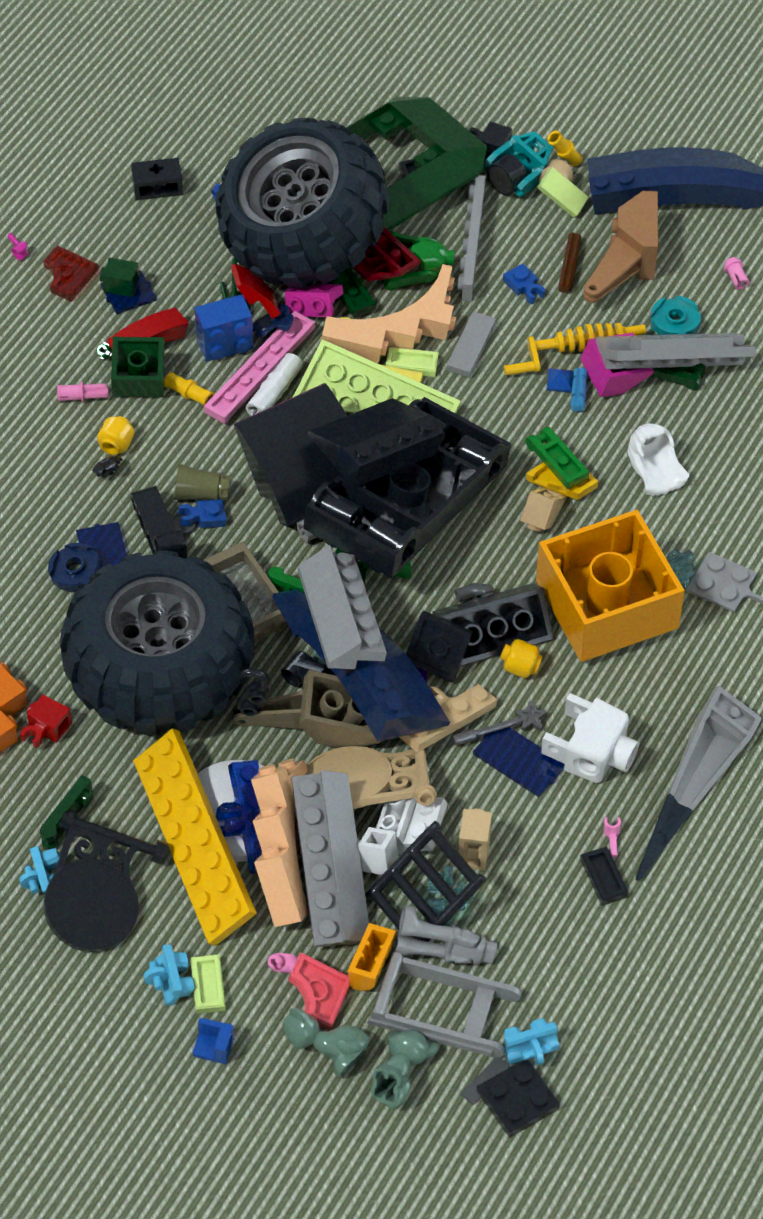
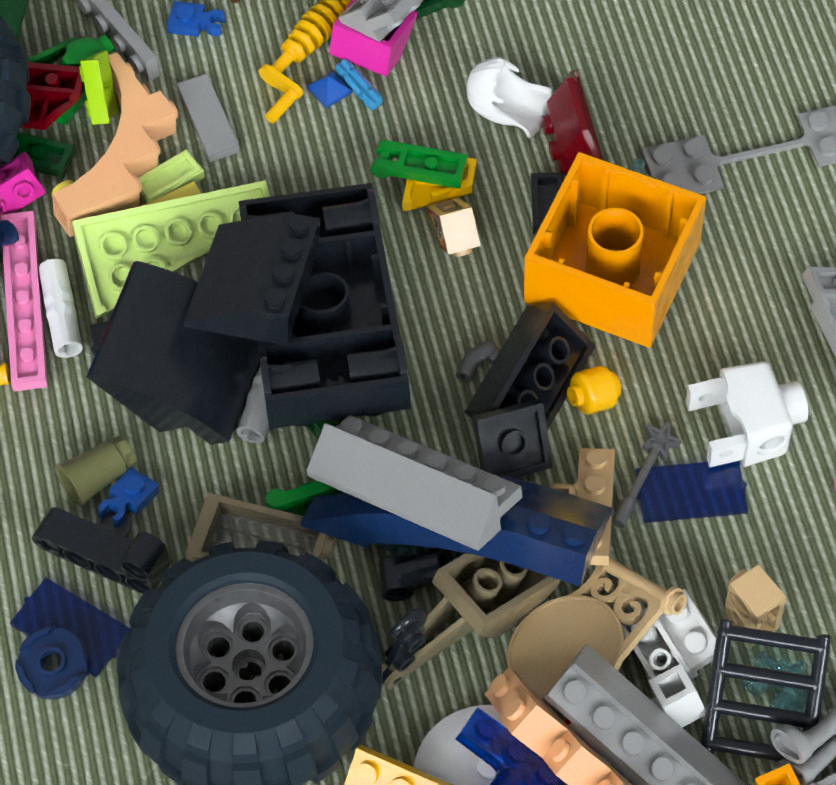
camera: 40 degrees left, 5 degrees up
(422, 266) = (101, 98): none -> lime piece
(677, 505) = (569, 124): none -> dark red wedge

